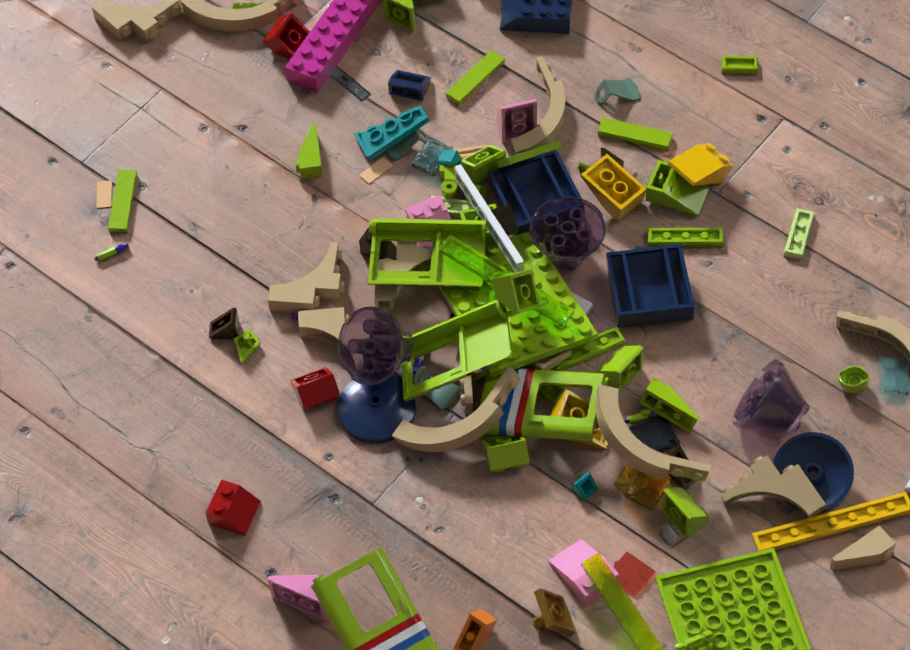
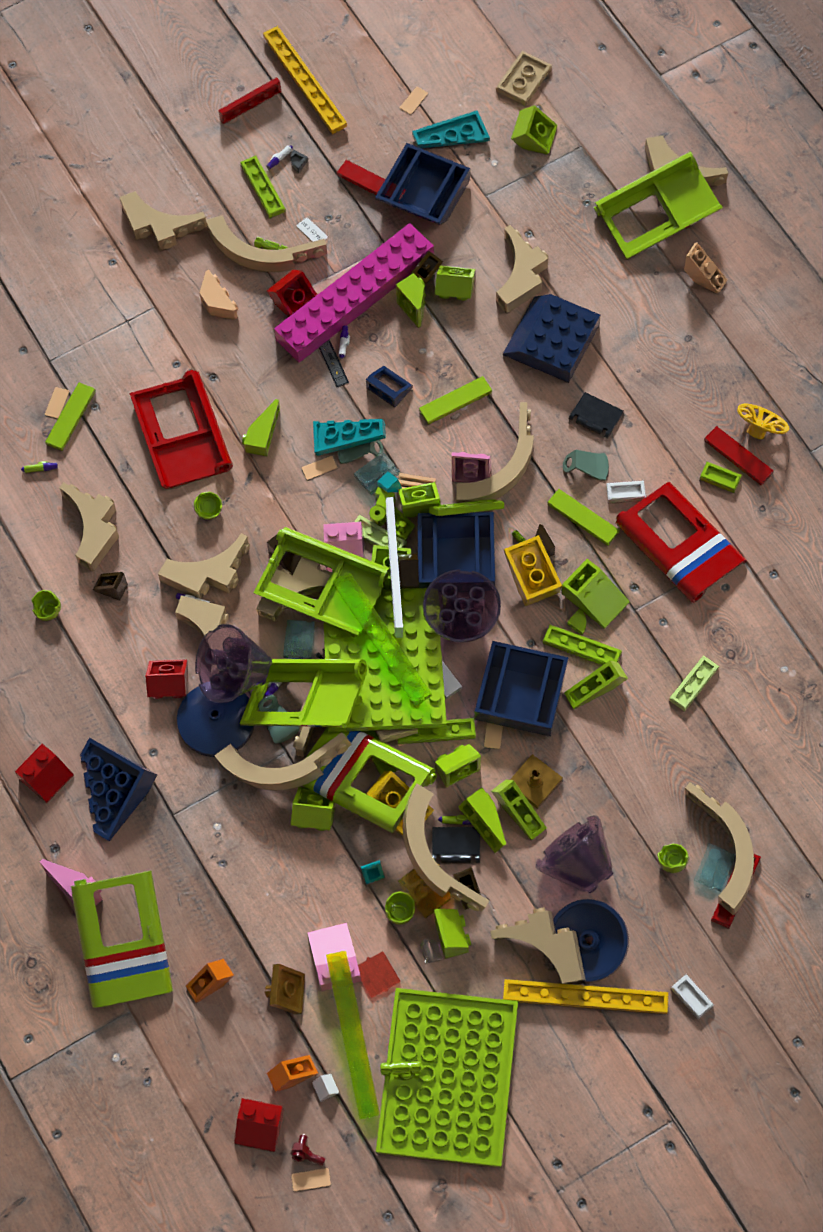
camera: 20 degrees right, 10 degrees up
(170, 363) = (46, 605): none -> lime hair
(185, 275) = (97, 532): none -> tan arch
(219, 63) = (216, 298): none -> light nougat slope
(246, 344) = (123, 610): lime piece -> none
(250, 197) = (188, 455): none -> red piece
(287, 231) = (207, 505): none -> lime hair
(306, 496) = (115, 786): none -> dark blue slope
(352, 62) = (344, 341): none -> piece
(423, 313) = (299, 639): none -> clear light blue plate
(517, 291) = (380, 658): lime slope -> none
(606, 50) = (596, 414): none -> black piece
(626, 506) = (400, 908): none -> lime hair
(640, 335) = (493, 736): none -> light nougat sticker
(662, 102) = (625, 491): none -> white tile
(672, 218) = (578, 621): none -> lime tile
(693, 385) = (519, 808): none -> lime slope
(697, 360) = (536, 780): none -> pearl gold tile
(702, 165) = (626, 579): yellow slope -> none
(714, 261) = (596, 684): none -> lime slope
(747, 43) = (738, 455): none -> red tile
(751, 137) = (695, 561): none -> red piece
(755, 13) = (758, 427): none -> yellow wheel
(866, 551) = (605, 1037): tan slope -> none

